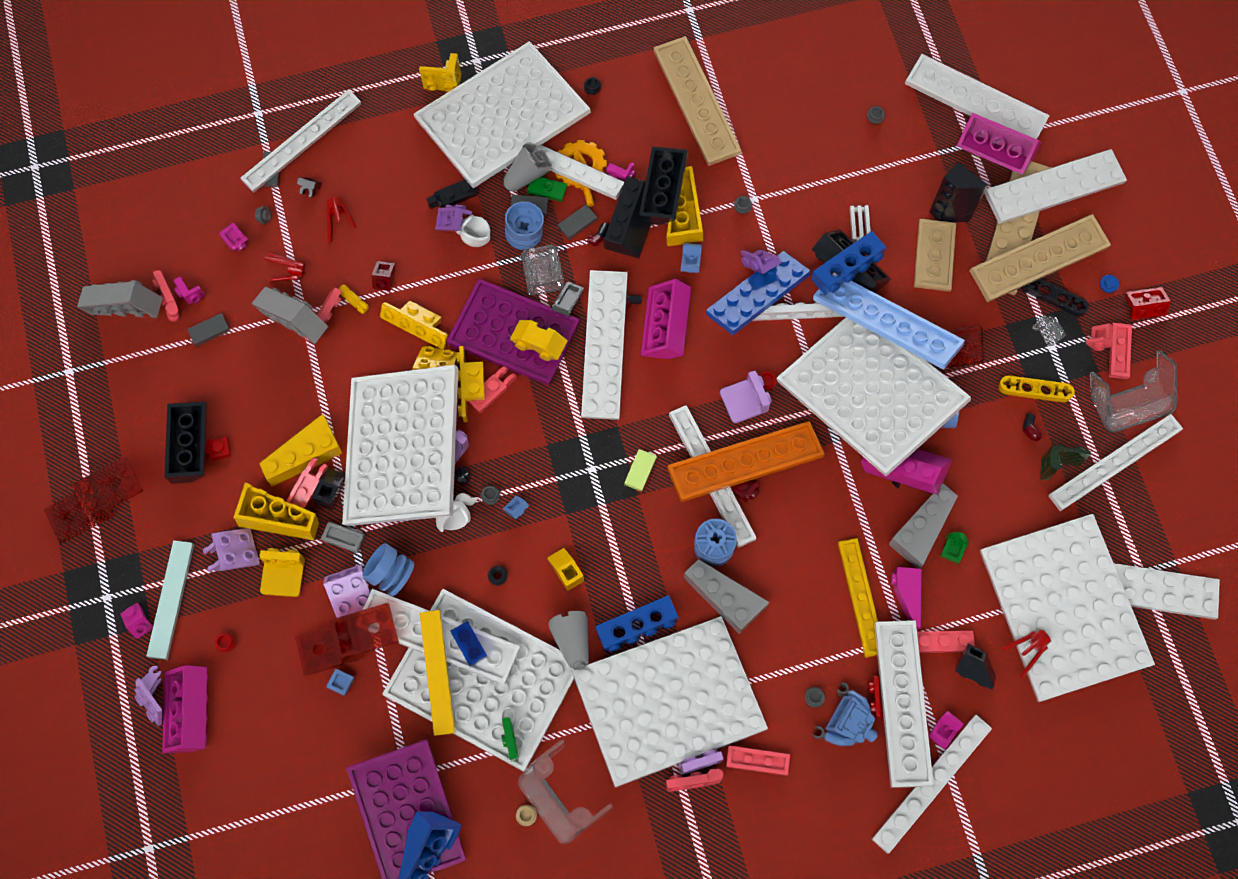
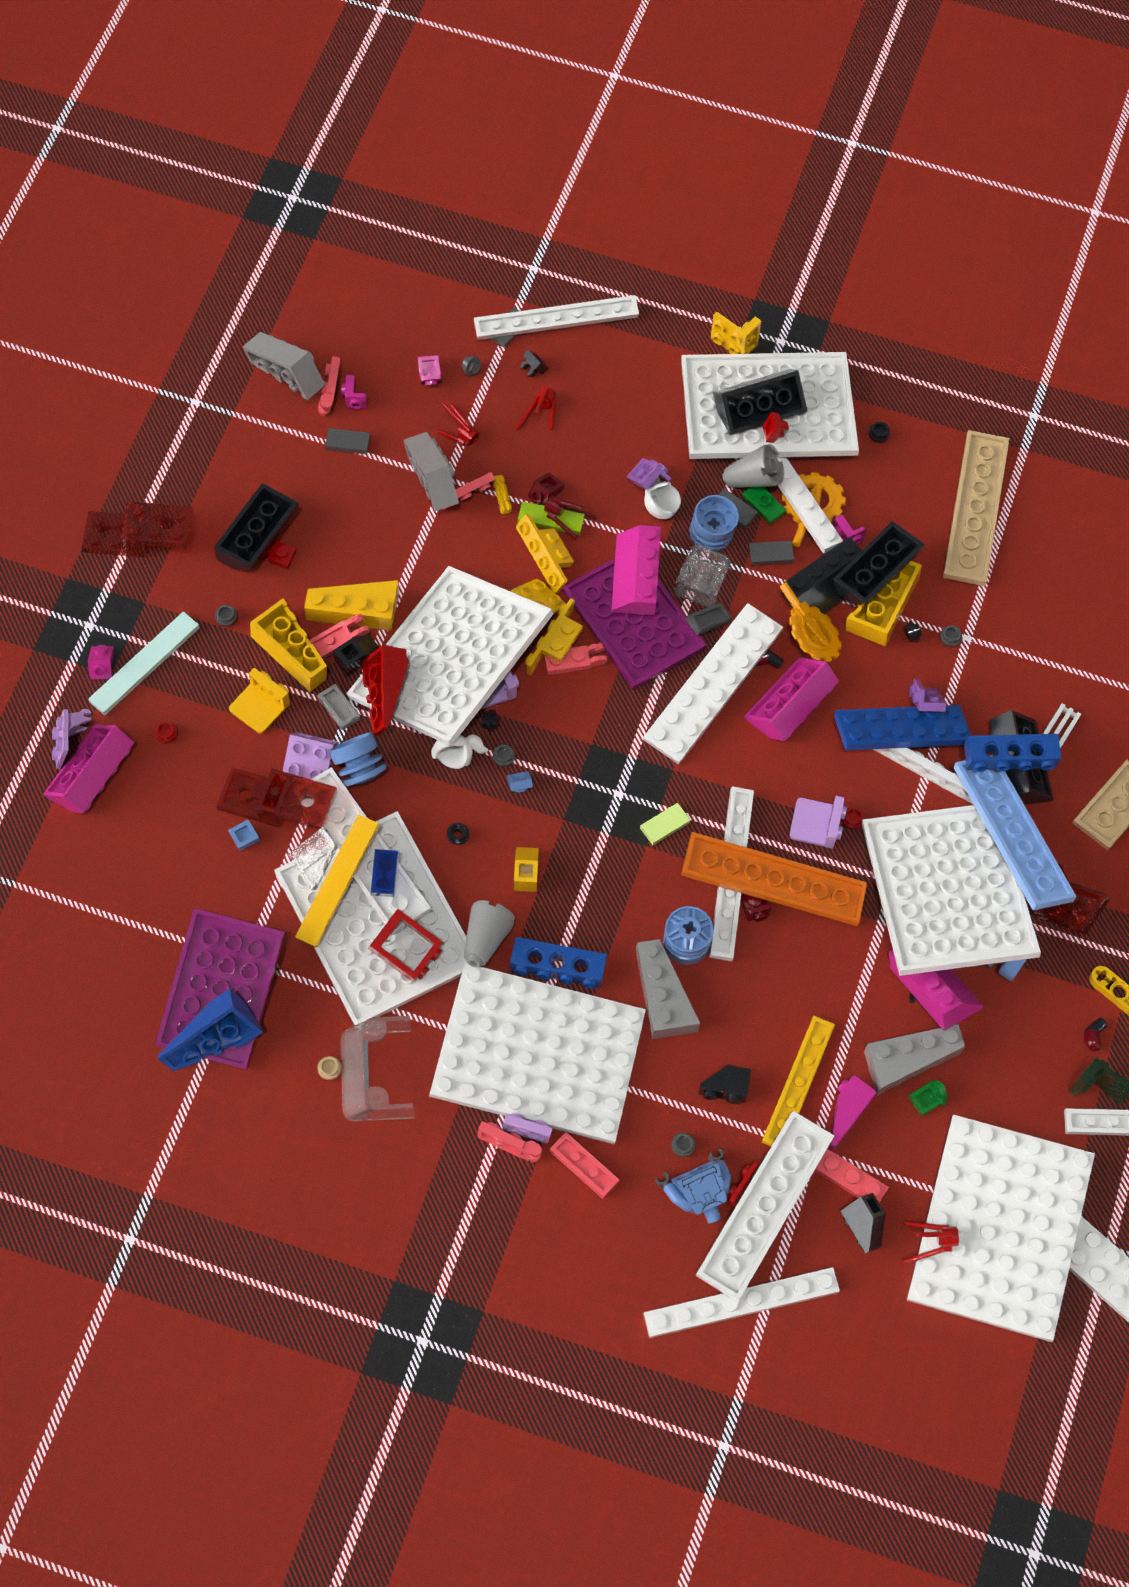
camera: 30 degrees right, 5 degrees down
(208, 522) = (226, 615): none -> dark grey plate
(234, 550) = (230, 653): lavender plate -> none
(365, 494) = (384, 677): none -> red wedge
(401, 284) = (556, 506): none -> dark red plant
(403, 293) = (571, 519): none -> lime tile
(407, 665) = (314, 857): none -> clear wing
(452, 195) = (665, 453): black hinge -> none
(493, 295) = (636, 570): none -> dark pink slope
(496, 114) = (752, 402): none -> black slope
(501, 688) = (432, 954): none -> red window
(508, 739) = (361, 985): green plate -> none
(520, 128) = (774, 427): none -> red tile
(531, 337) = (655, 644): yellow brick -> none
(595, 240) = (777, 580): arm -> none
(646, 260) = (812, 623): none -> light orange bar
(691, 258) = (860, 654): medium blue bracket -> none
(715, 217) = (913, 631): none -> black plate
(816, 630) = (728, 1084): none -> black slope
(945, 729) = (790, 1260): dark pink bracket -> none

